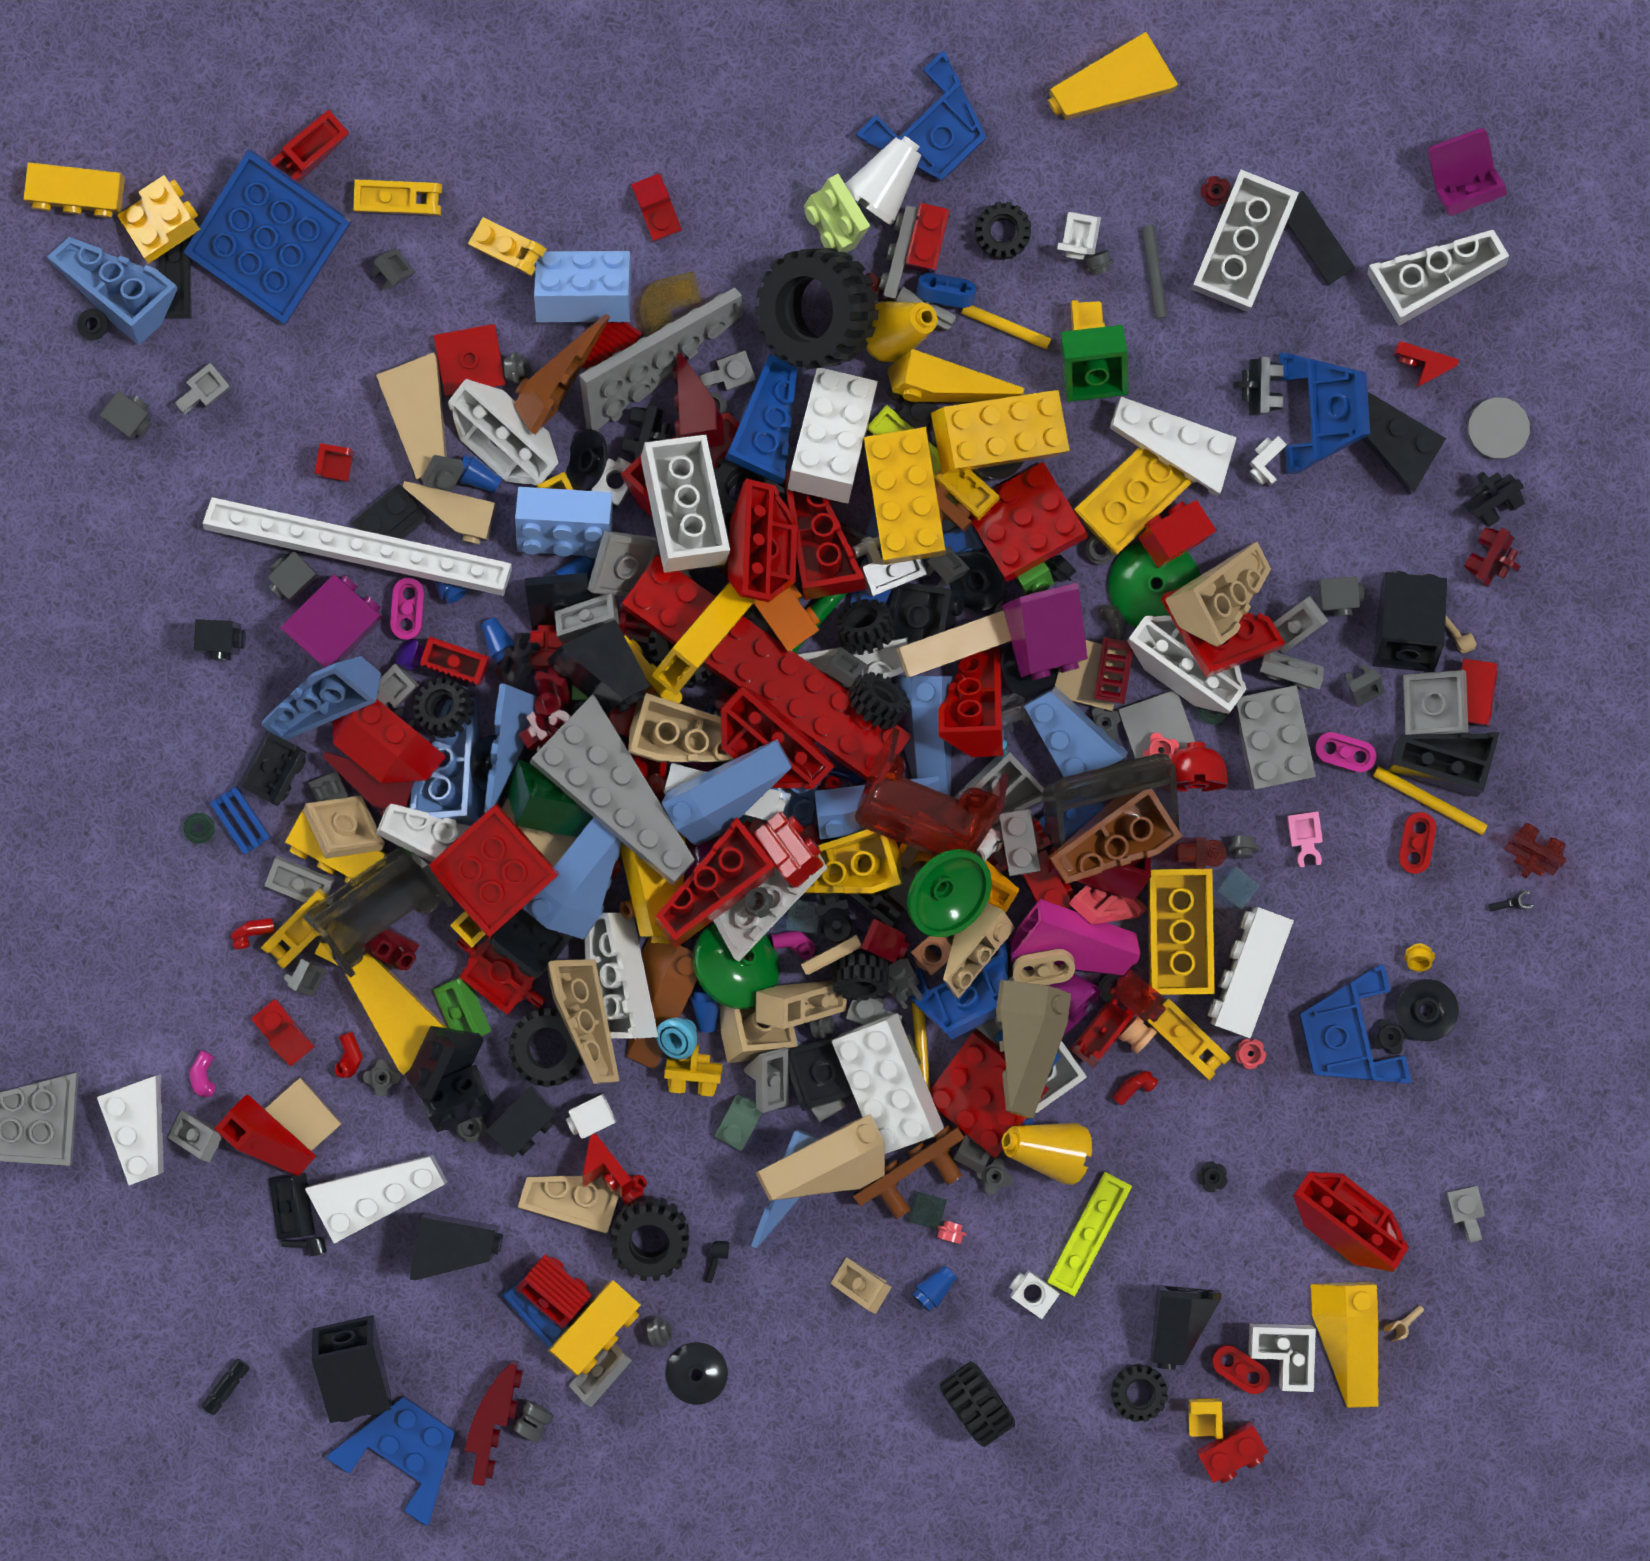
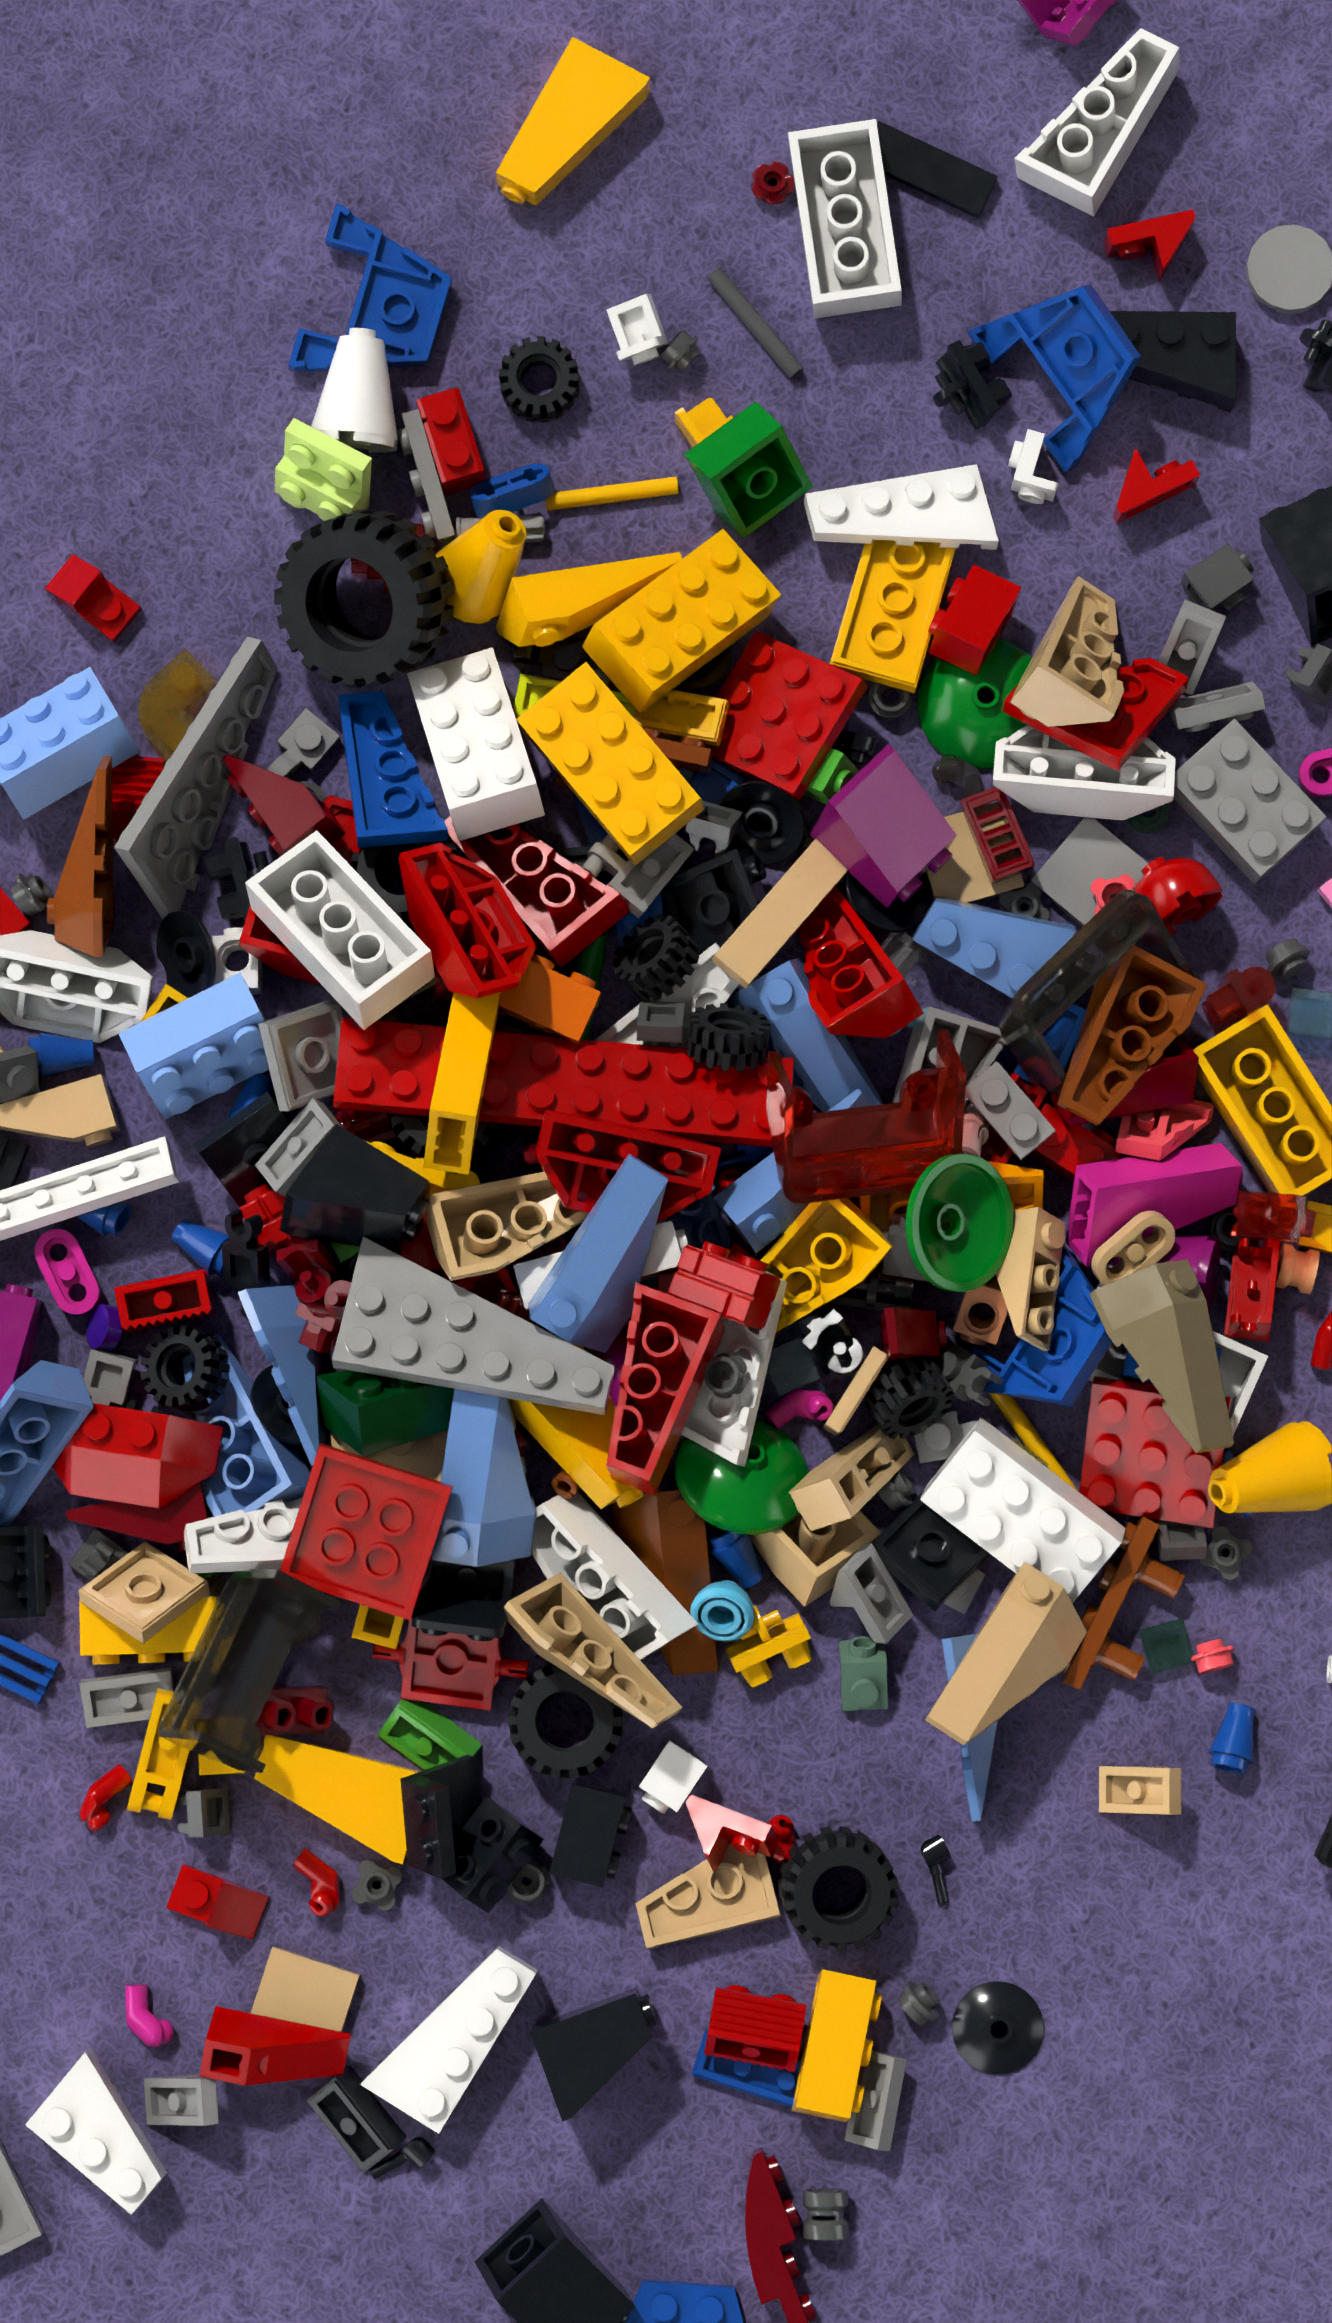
camera: 30 degrees left, 5 degrees down
(1324, 513) = (1143, 492): none -> red slope

